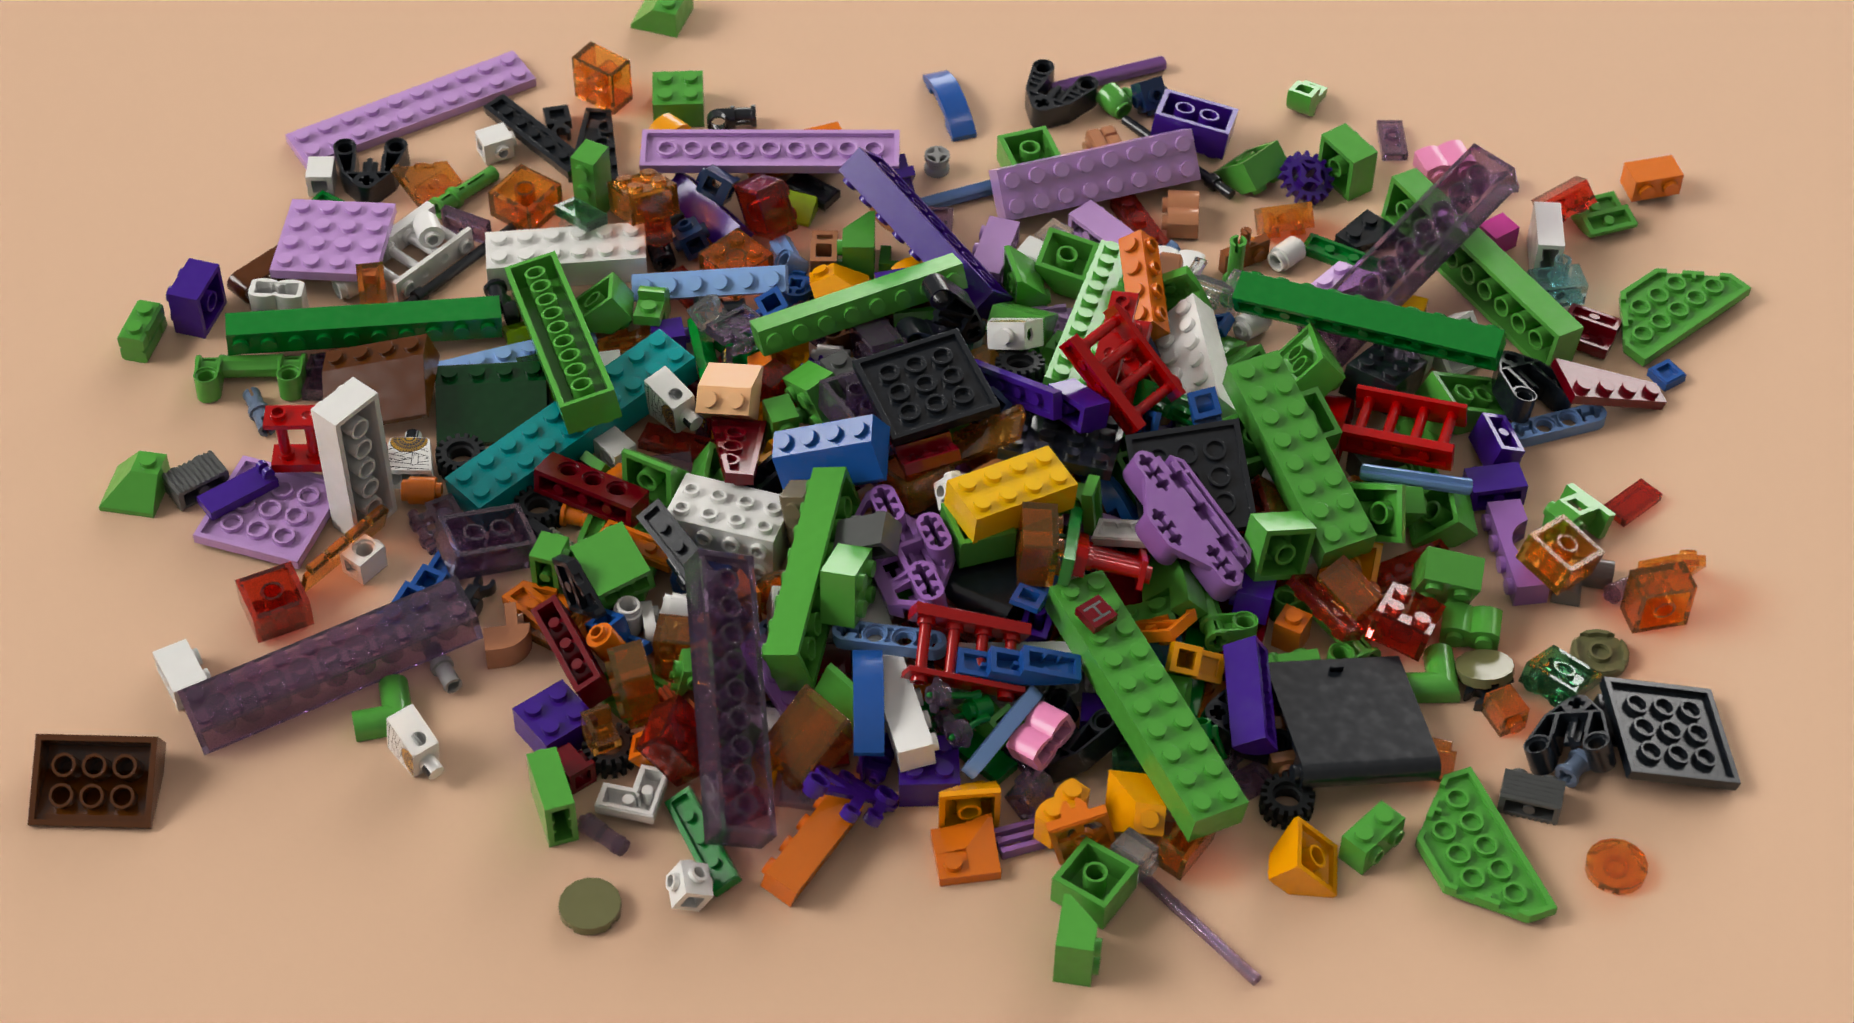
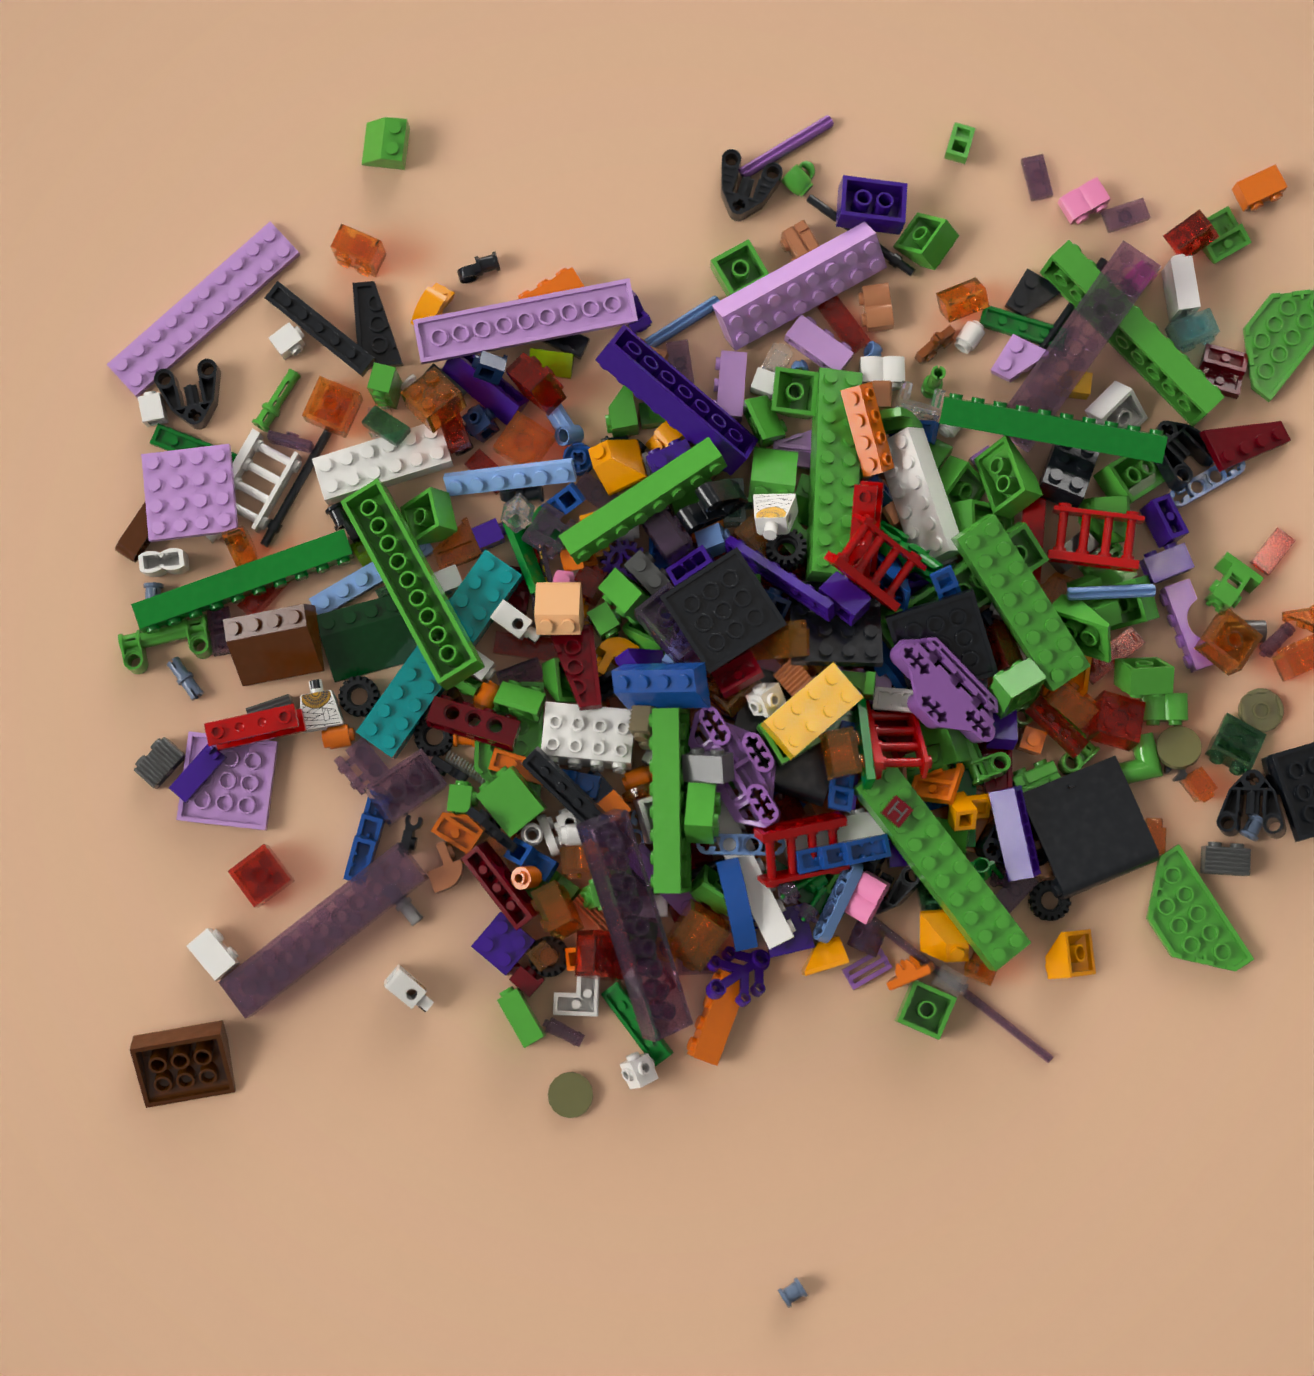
camera: 10 degrees left, 35 degrees up
(137, 485) = (114, 777): bright green slope -> none
(142, 331) = (64, 616): bright green brick -> none
(196, 298) = (97, 578): dark purple brick -> none
(324, 564) = (301, 805): clear orange windscreen -> none
(353, 454) = (288, 759): white brick -> none
(364, 559) = (305, 818): white brick -> none
(394, 696) = (381, 956): bright green brick -> none
(426, 180) = (243, 399): clear orange wing -> none
(428, 229) = (263, 464): white brick -> none
(558, 120) = (332, 300): black plate -> none
(652, 306) = (469, 512): bright green brick -> none
(680, 95) = (428, 256): bright green brick -> none
(823, 248) = (593, 417): nougat brick -> none
(936, 161) = (662, 279): light grey wheel -> none
(952, 104) = (658, 208): blue slope -> none
(966, 852) = (826, 993): orange plate -> none
(1050, 808) = (894, 950): light orange brick -> none
(1076, 945) = (922, 1069): bright green slope -> none
(1148, 95) = (827, 172): dark blue brick -> none
(1306, 178) = (981, 244): dark purple gear -> none
(1350, 159) = (1006, 224): bright green brick -> none
(1372, 837) = (1116, 924): bright green brick -> none
(1616, 866) = (1291, 907): clear orange tile -> none
(1666, 375) = (1287, 407): blue tile -> none

